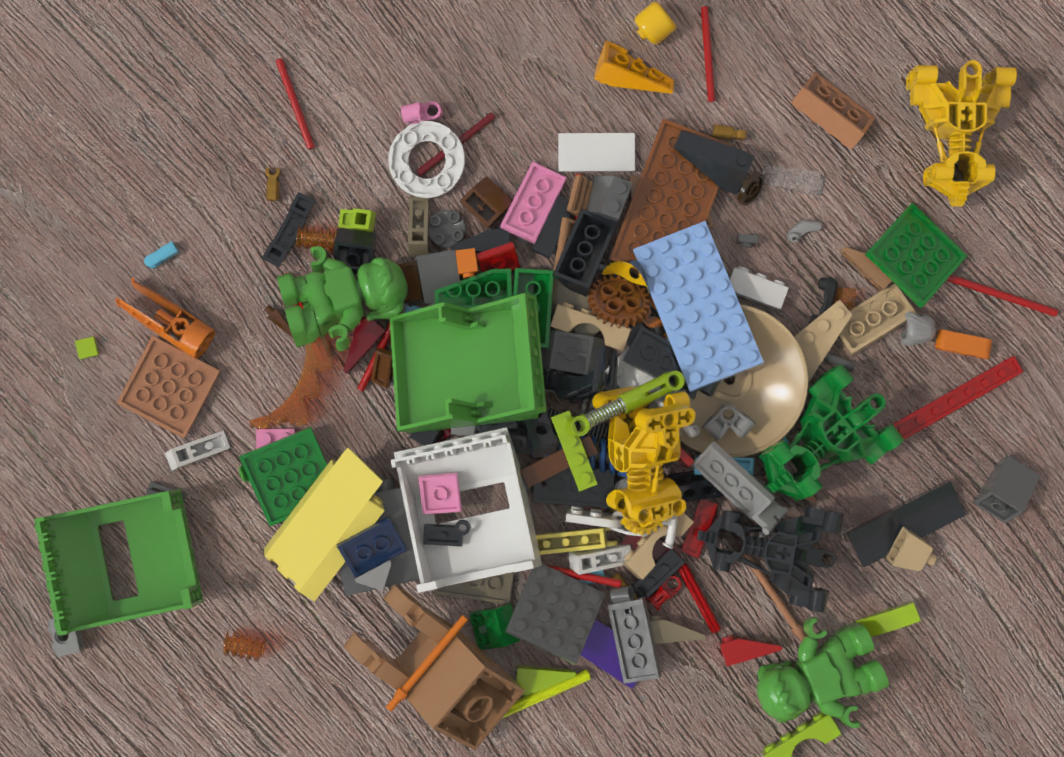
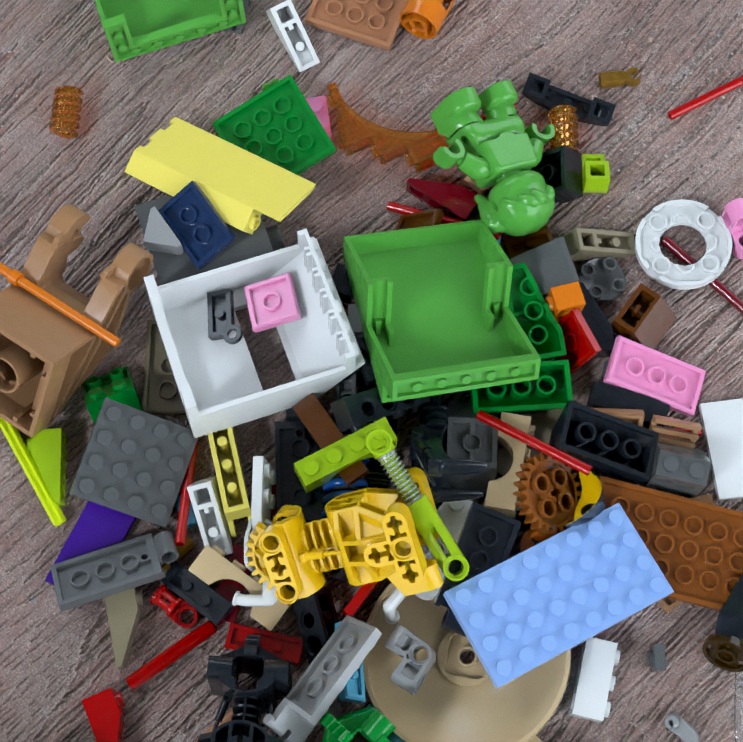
camera: 80 degrees right, 15 degrees down
(580, 306) = (534, 442): none -> red piece

